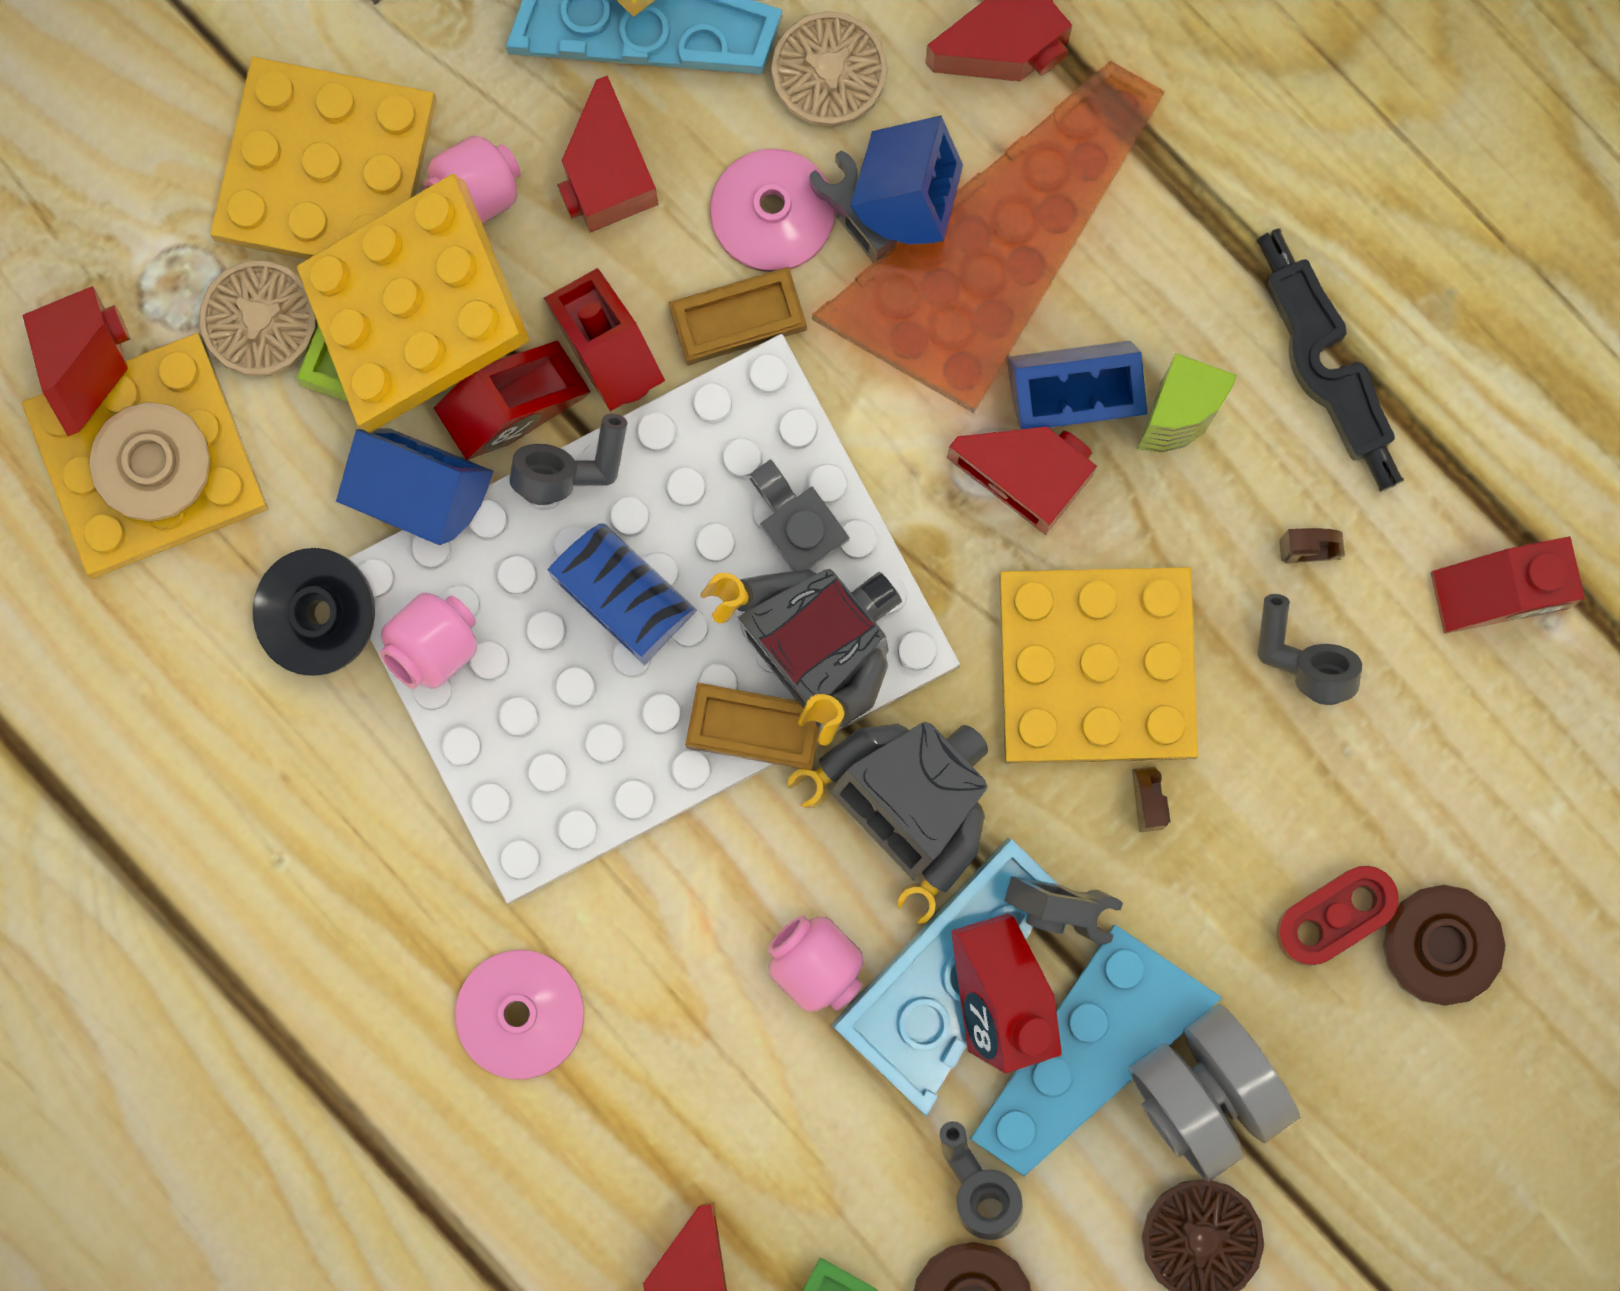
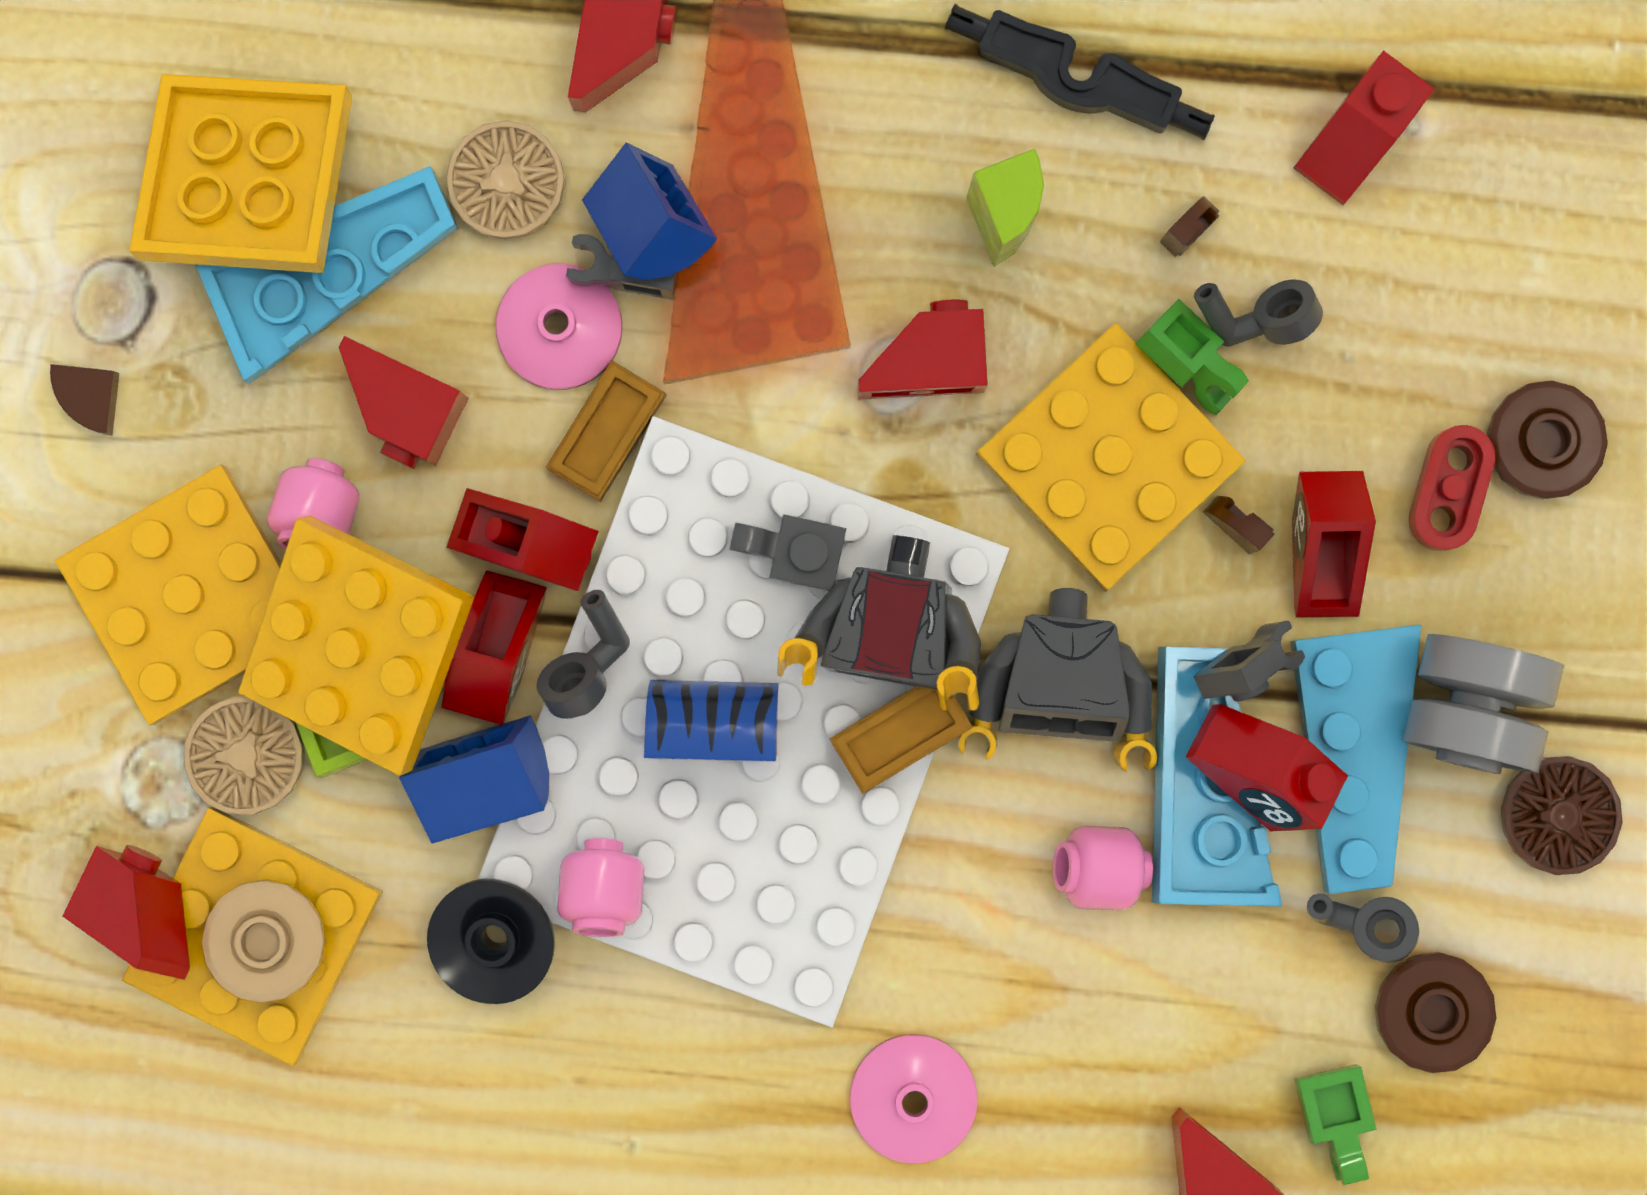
camera: 45 degrees left, 5 degrees up
(1077, 385) = (910, 258): blue brick -> none
(1206, 875) = (1331, 543): none -> red slope
(1228, 634) = (1187, 350): none -> bright green plate

